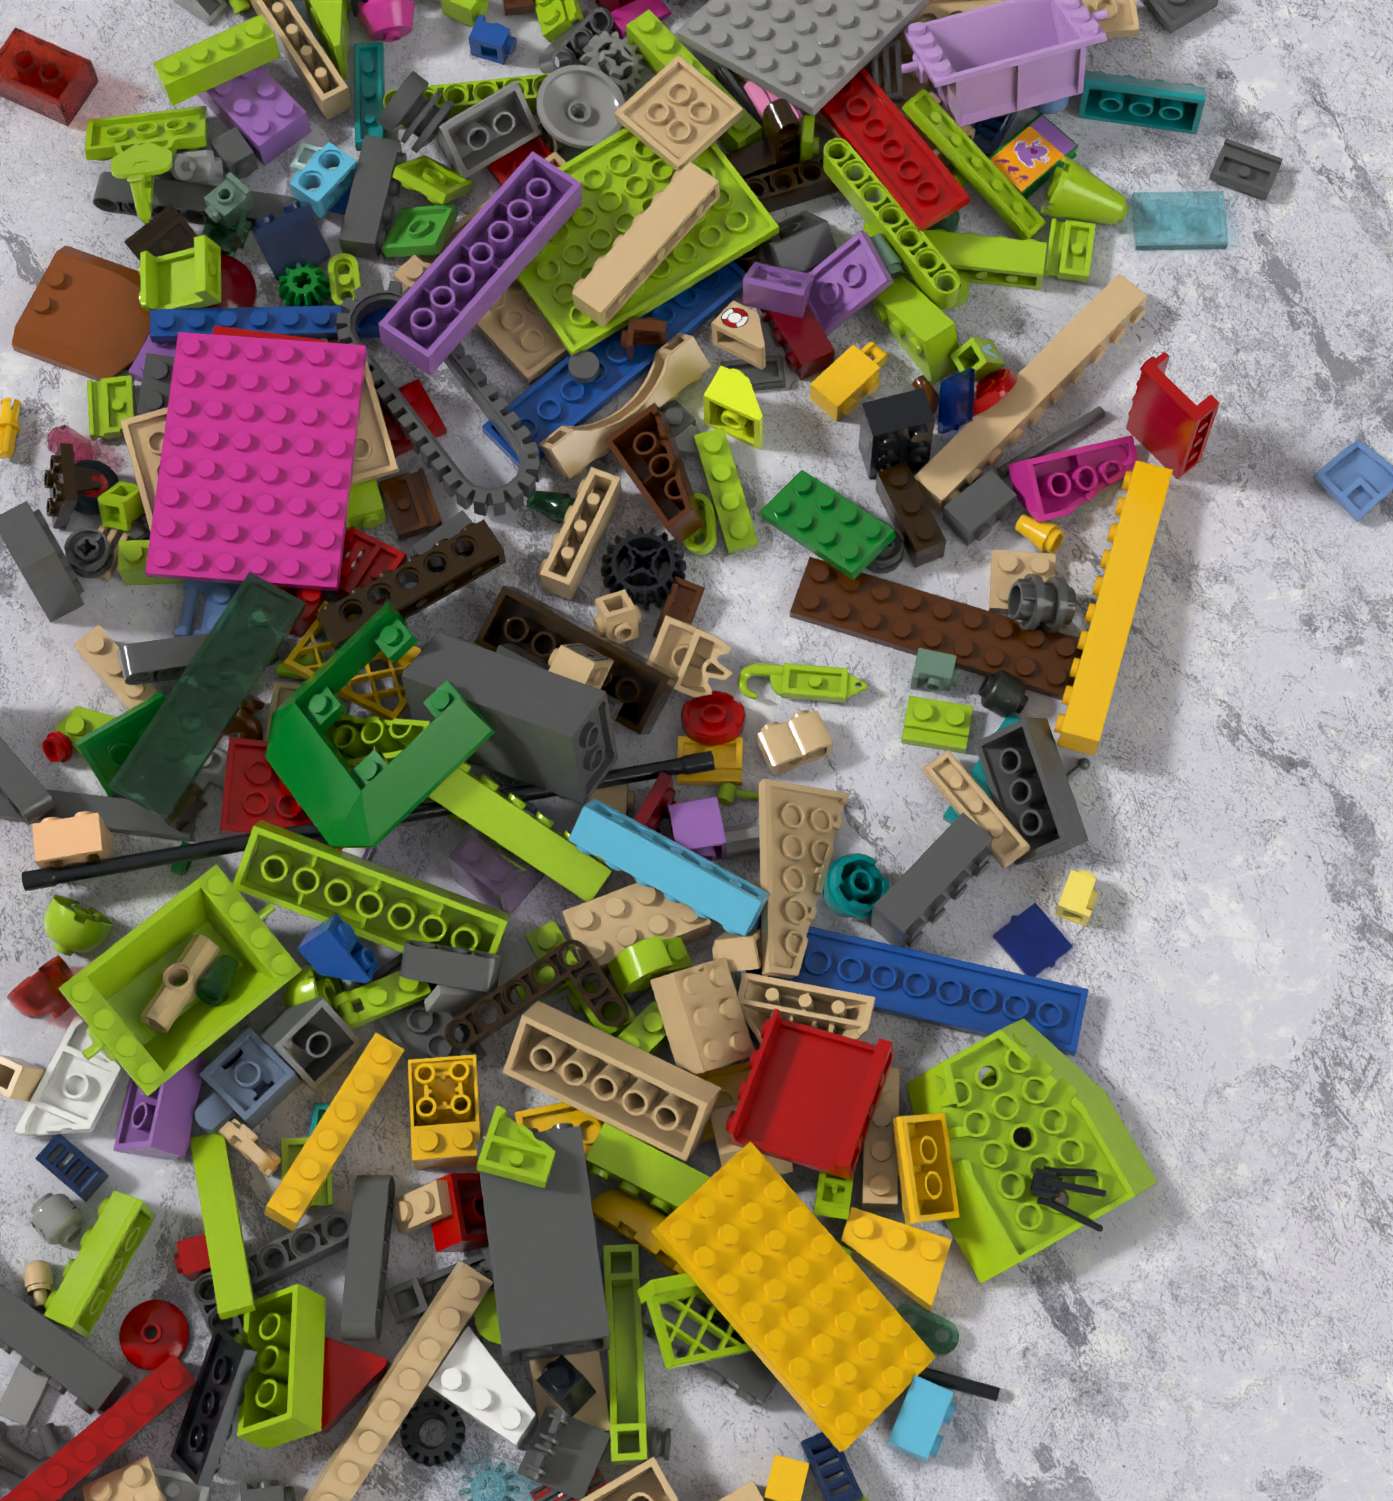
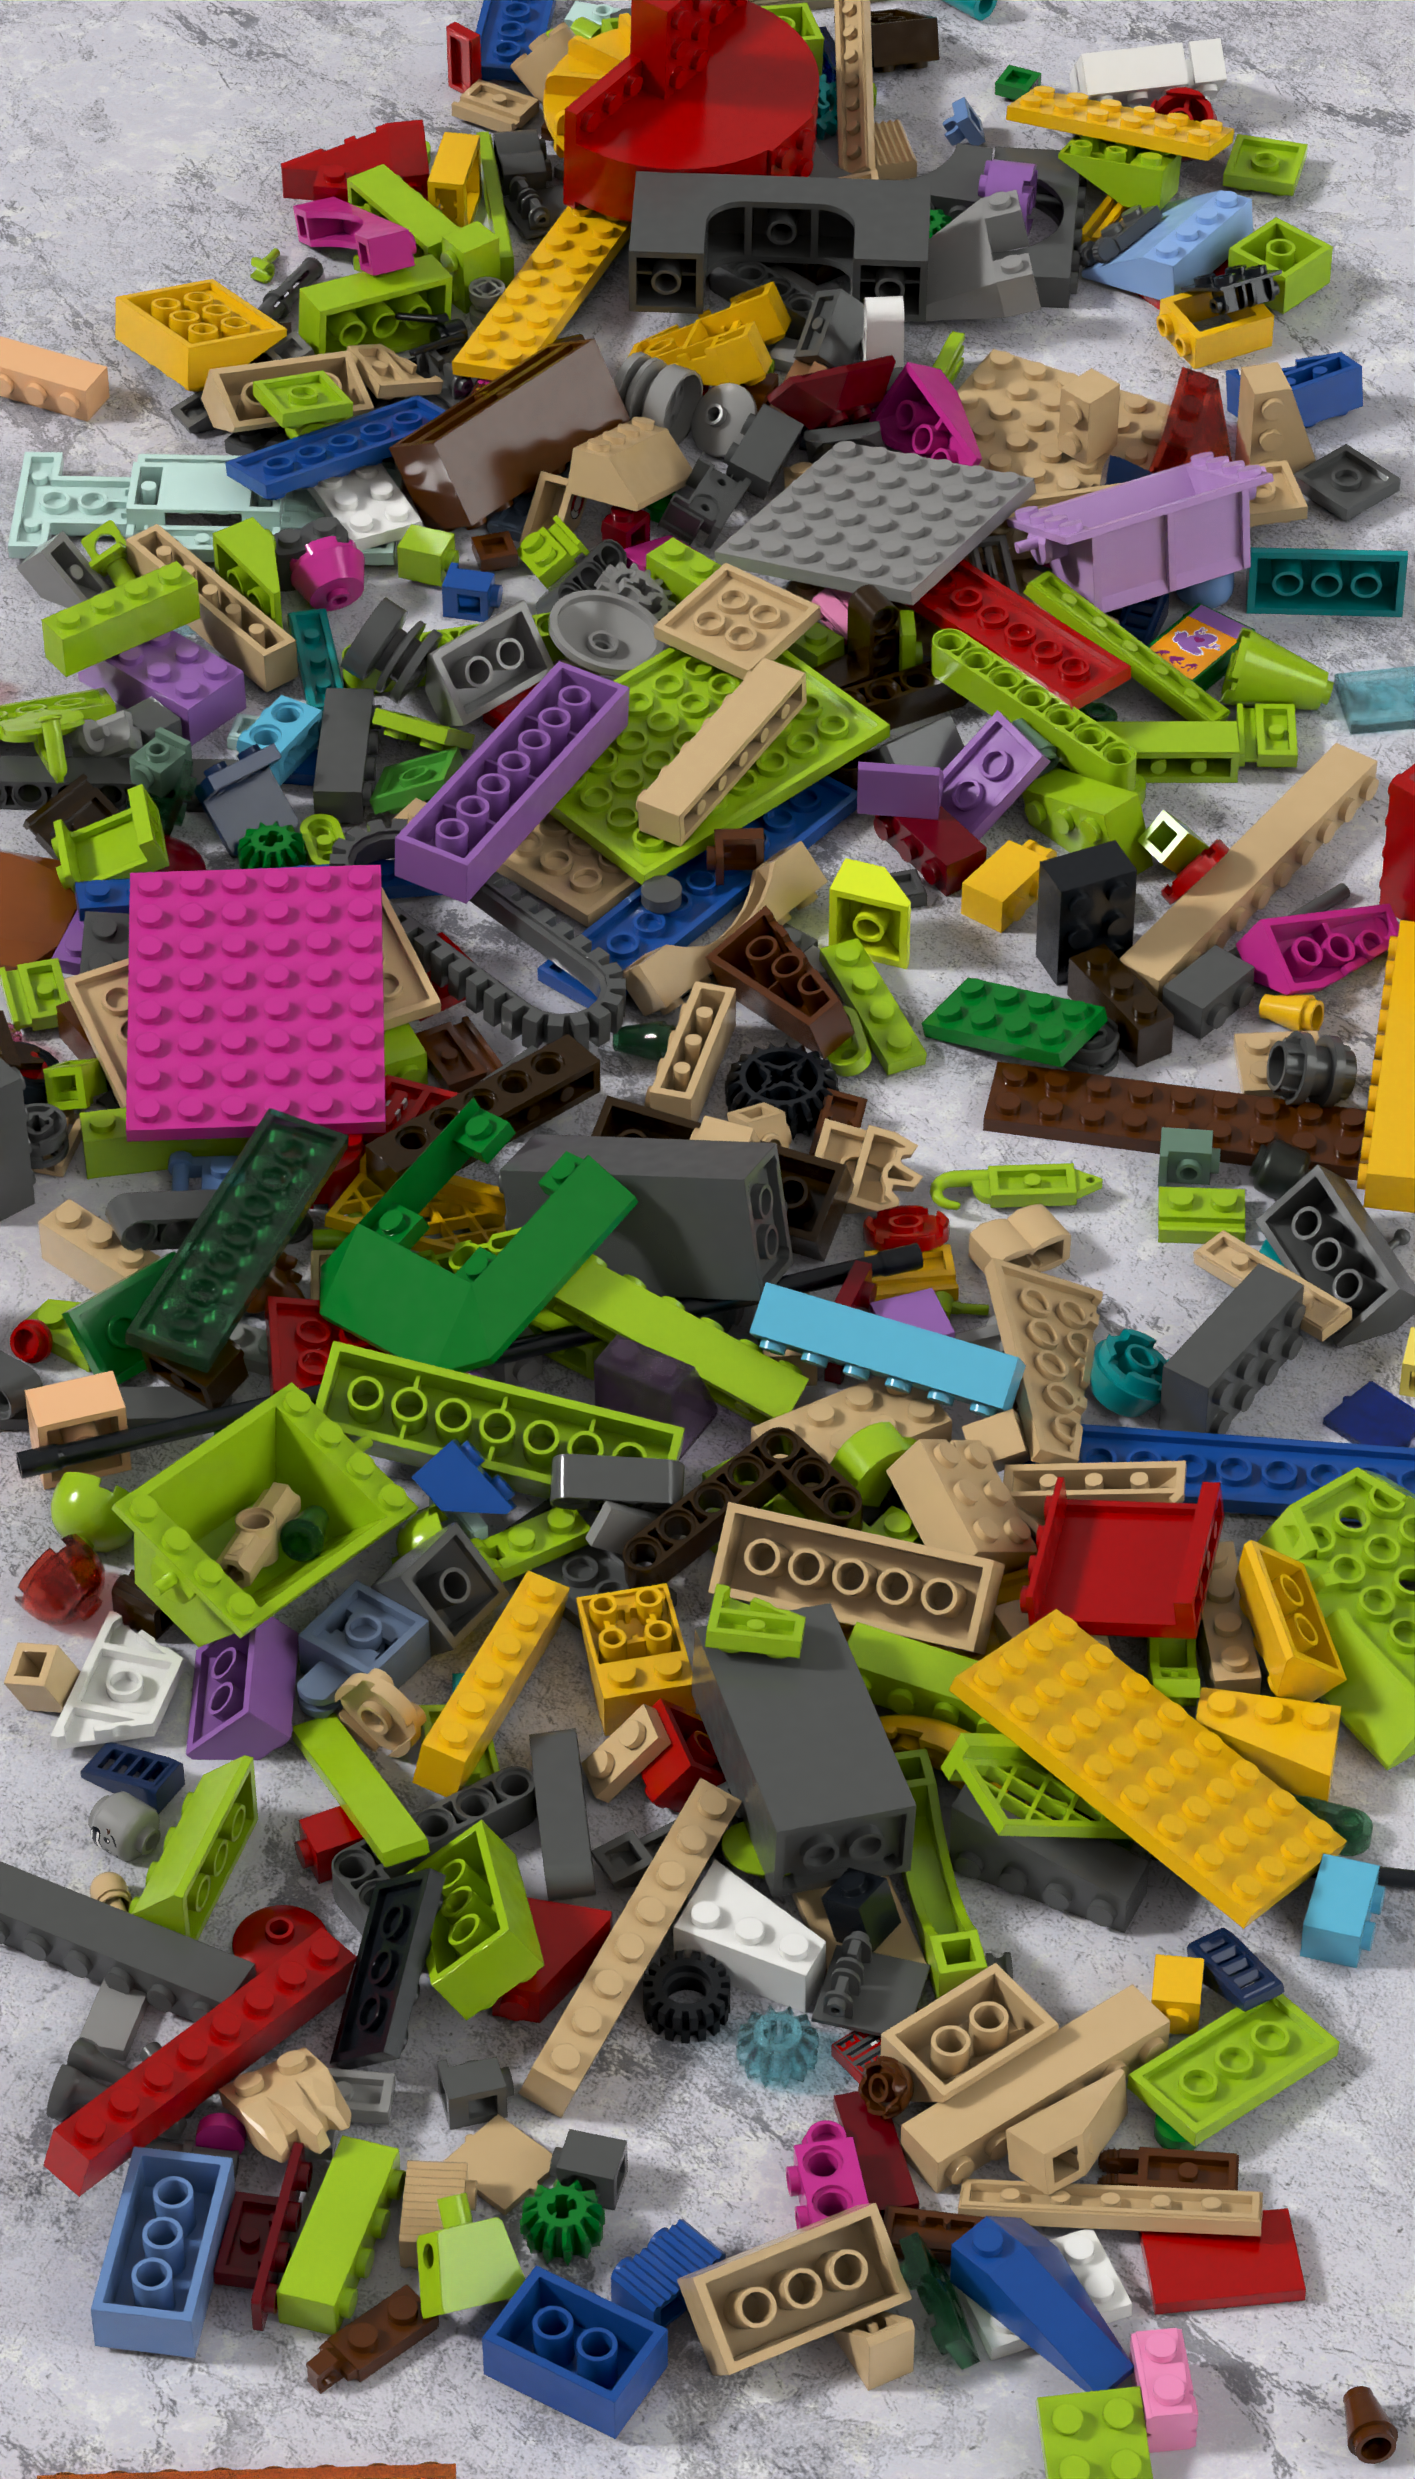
camera: 10 degrees left, 25 degrees down
(740, 333) = (859, 839): tan slope -> none
(956, 401) = (1156, 885): clear blue piece -> none

